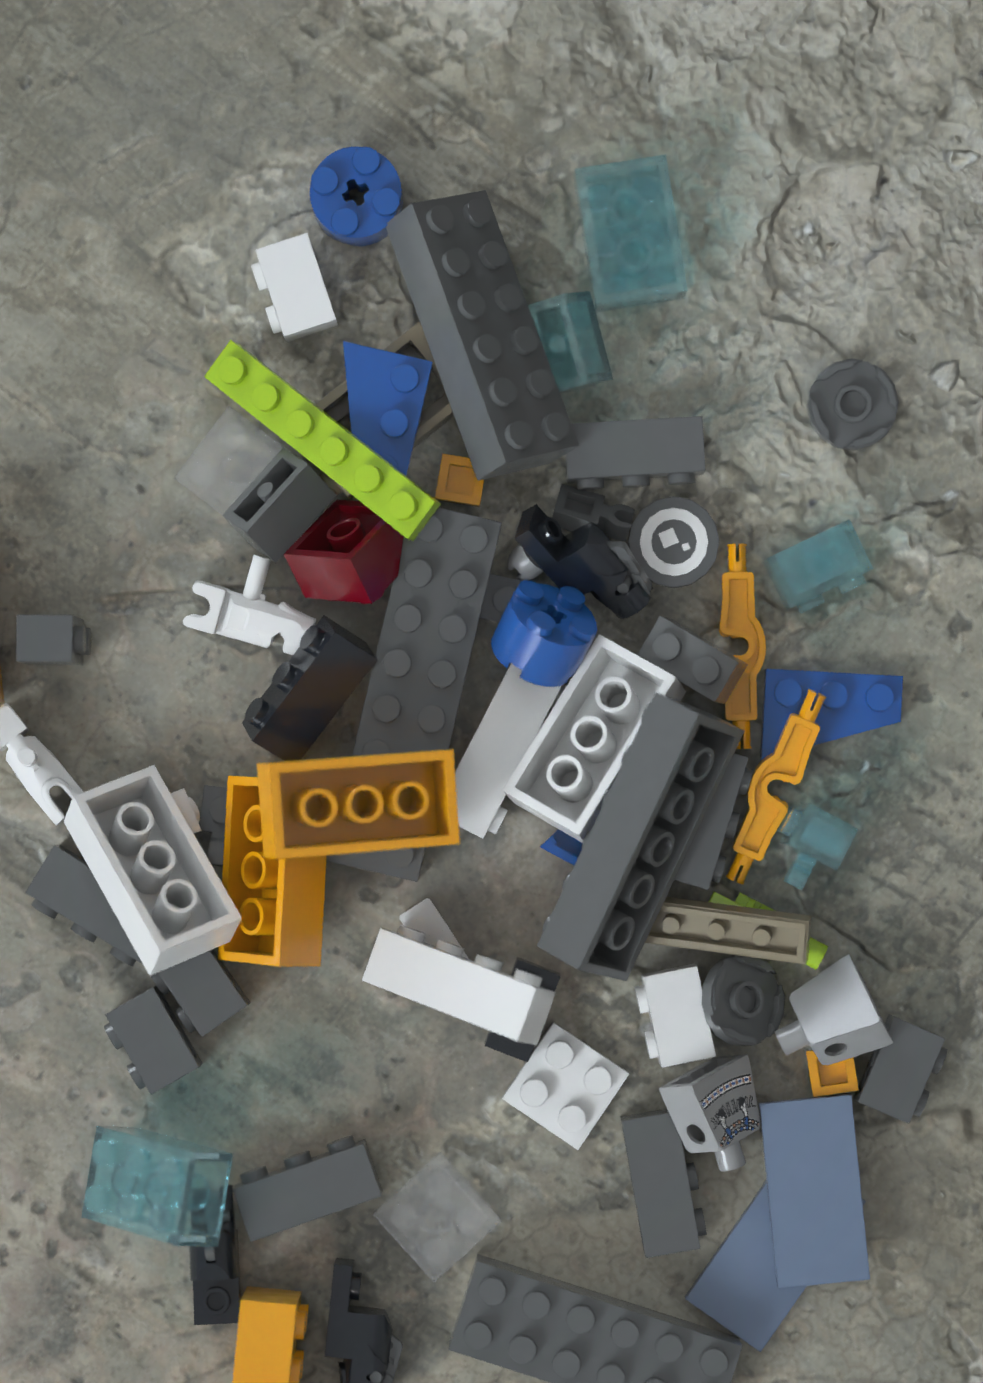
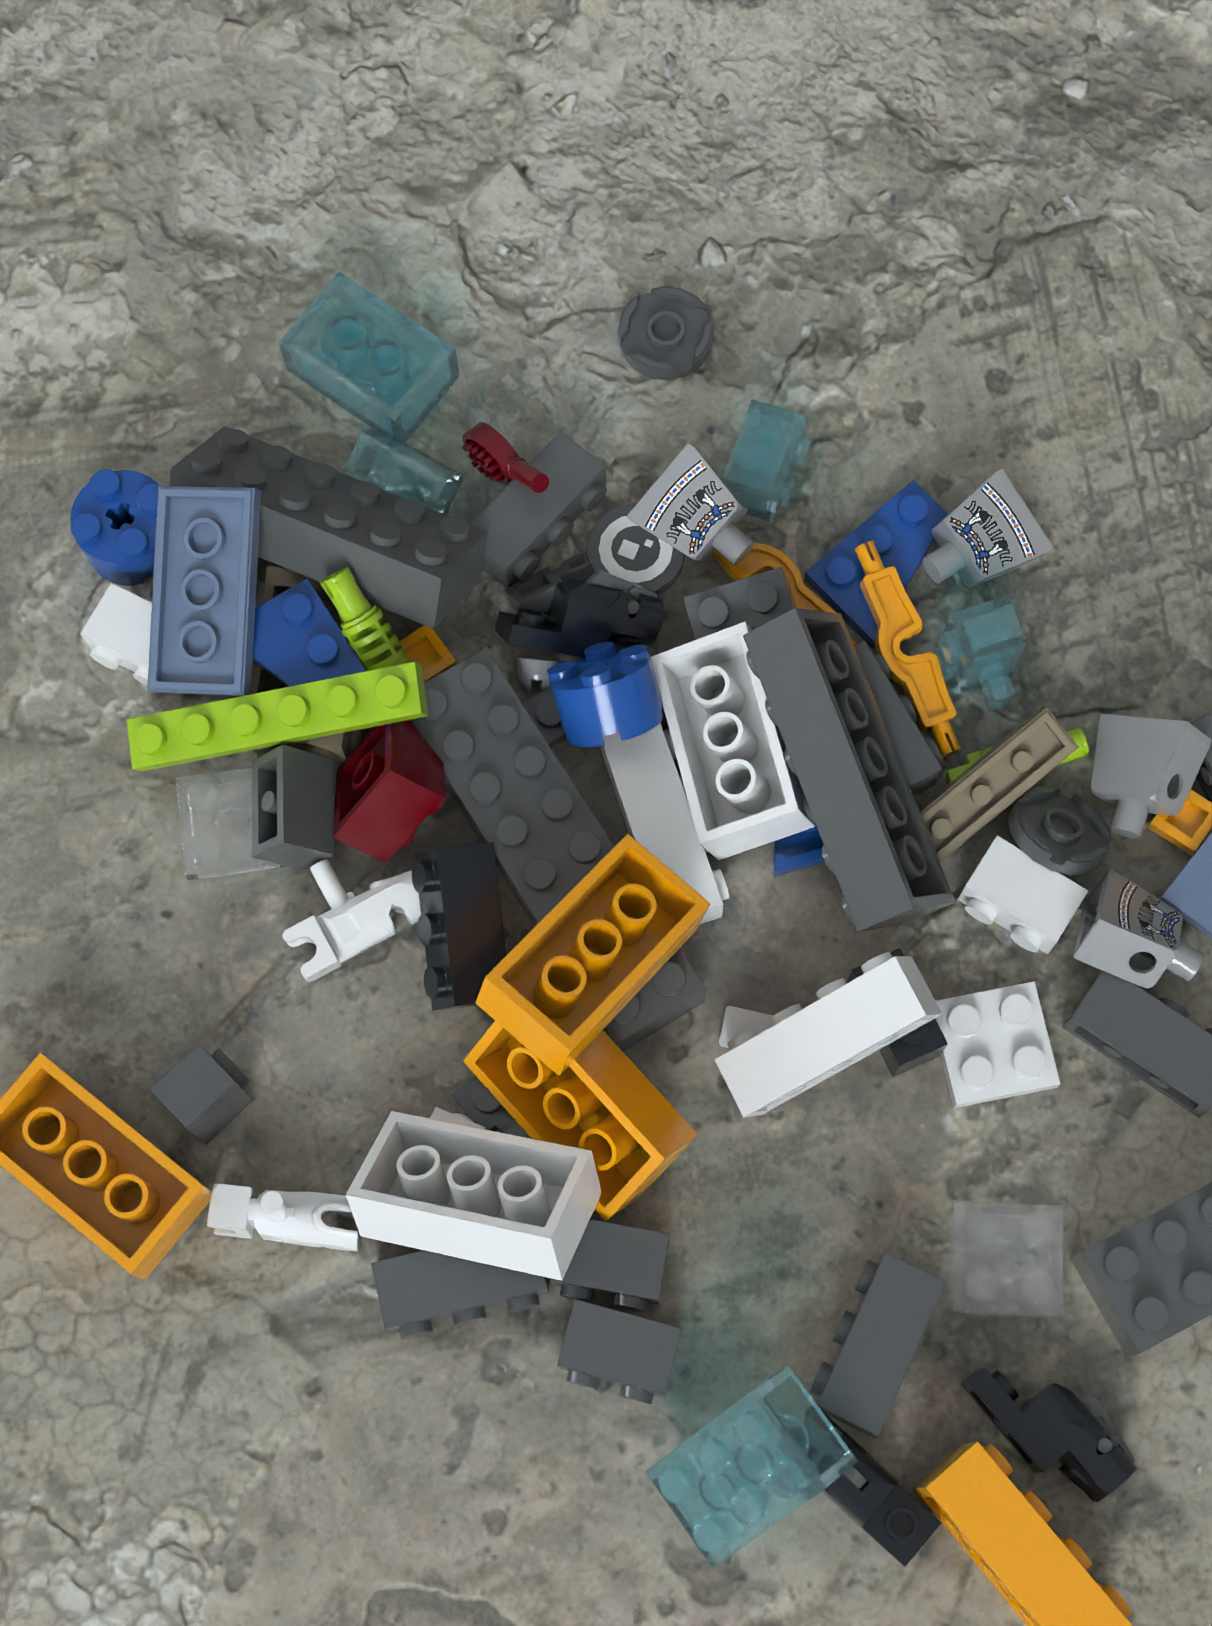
camera: 40 degrees left, 15 degrees down
(355, 309) = (204, 590): none -> sand blue tile
(435, 438) = (363, 623): none -> lime hinge
(642, 398) = (499, 458): none -> dark red piece
(729, 562) = (694, 509): none -> light grey torso
(904, 764) = (986, 535): none -> light grey torso

